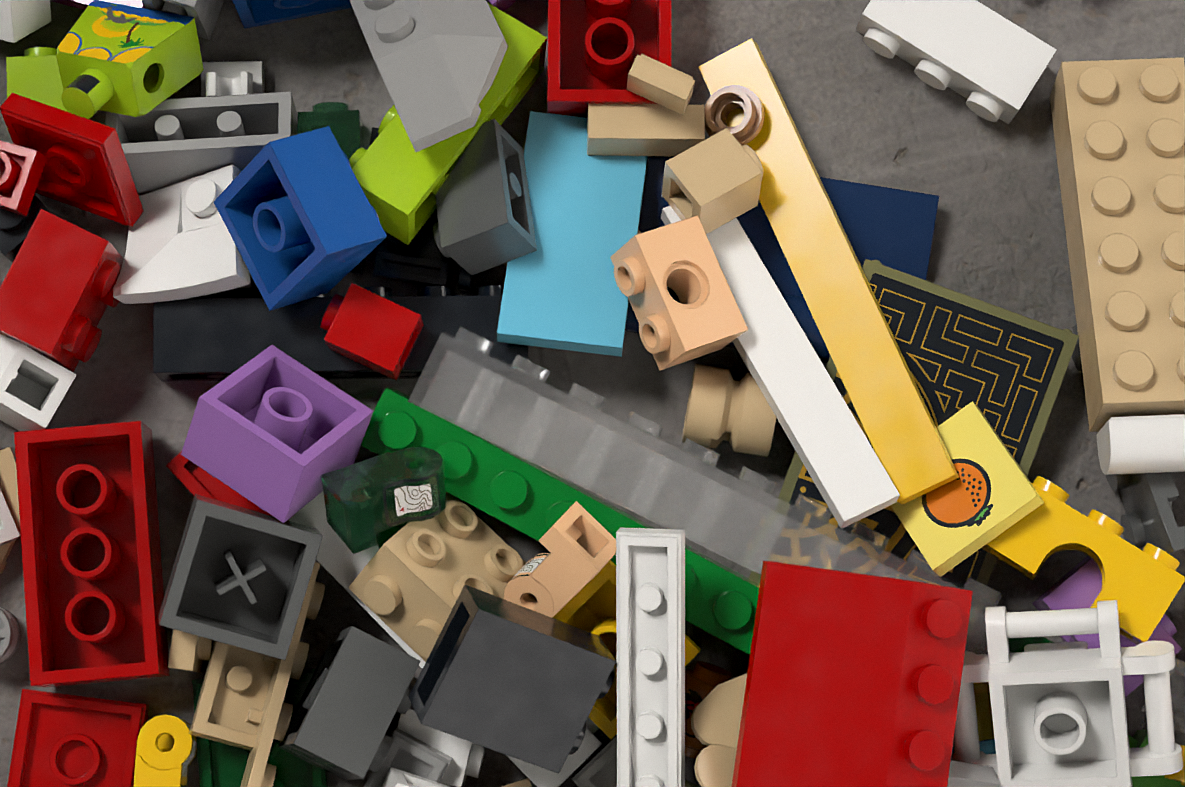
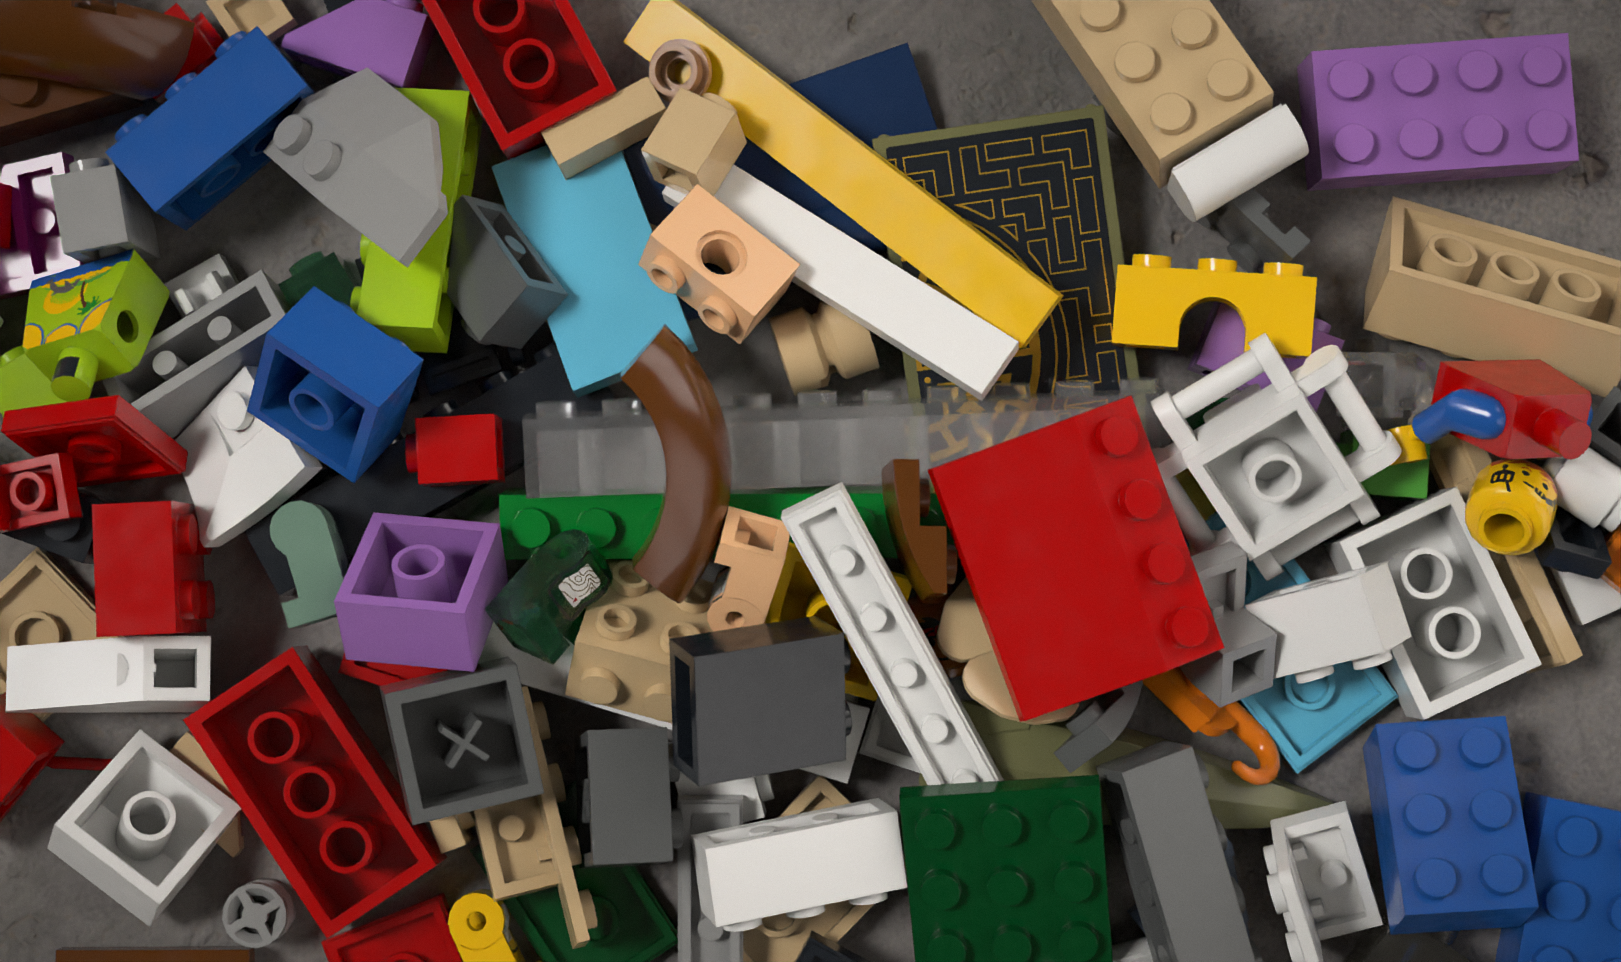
camera: 25 degrees left, 5 degrees up
(201, 357) = (315, 558): none -> sand green leg
(568, 450) = (696, 463): none -> reddish brown brick
(660, 83) = (597, 79): tan tile -> none
(720, 625) = (920, 549): none -> reddish brown slope
(977, 505) = (1093, 313): light yellow tile -> none

